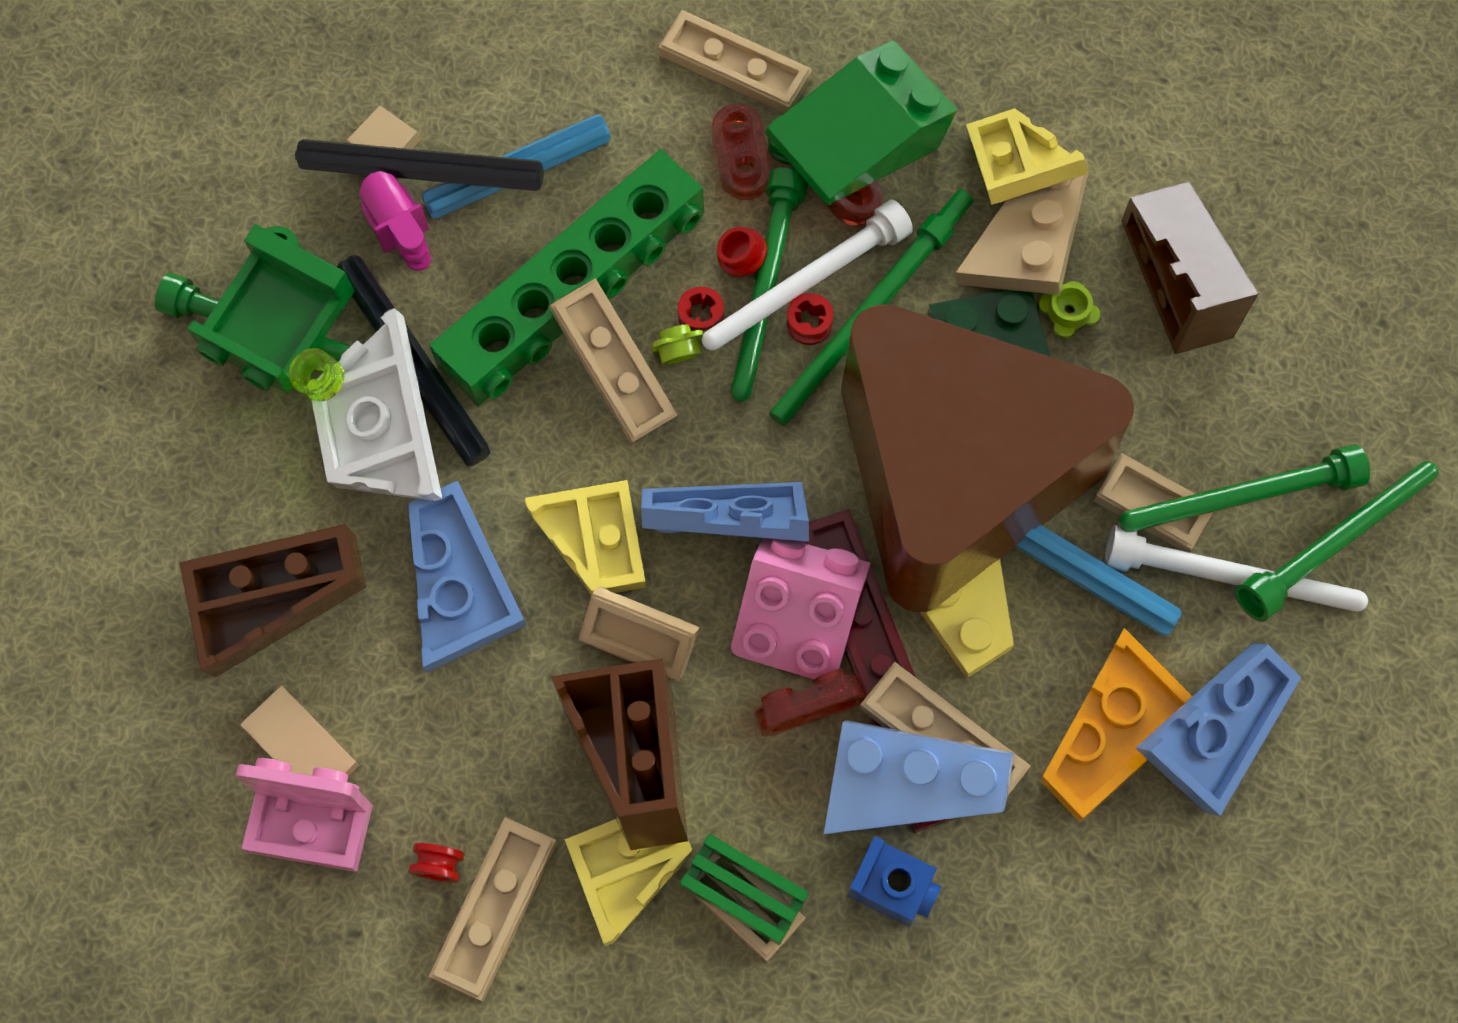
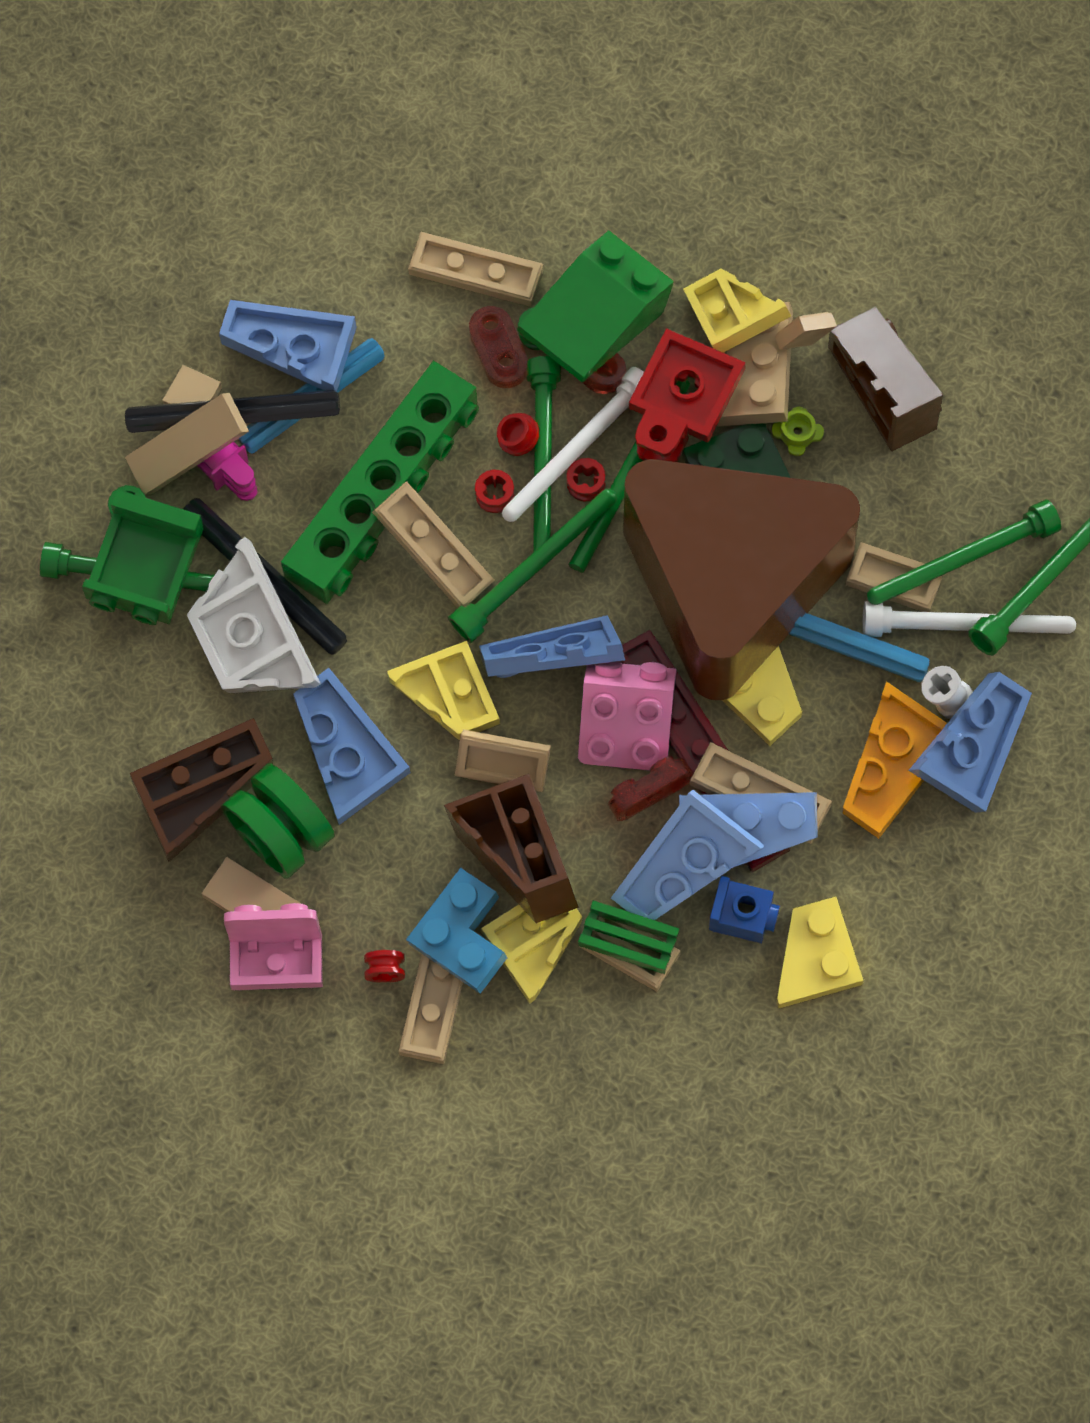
camera: 10 degrees left, 0 degrees up
(319, 360) = (189, 592): clear neon green bush -> none
(338, 660) = (278, 820): none -> green wheel
(355, 189) = (187, 444): none -> tan tile
(507, 100) = (293, 340): none -> medium blue wing
(522, 836) = (449, 936): none -> dark azure plate
(641, 455) = (471, 619): none -> green piece
(678, 344) = (482, 522): lime plate -> none
(834, 802) = (684, 857): none -> light blue wing
(924, 261) = (673, 415): none -> red plate
(976, 958) = (817, 955): none -> light yellow wing
(1101, 193) = (805, 330): none -> tan tile
(1189, 642) = (945, 690): none -> white bush

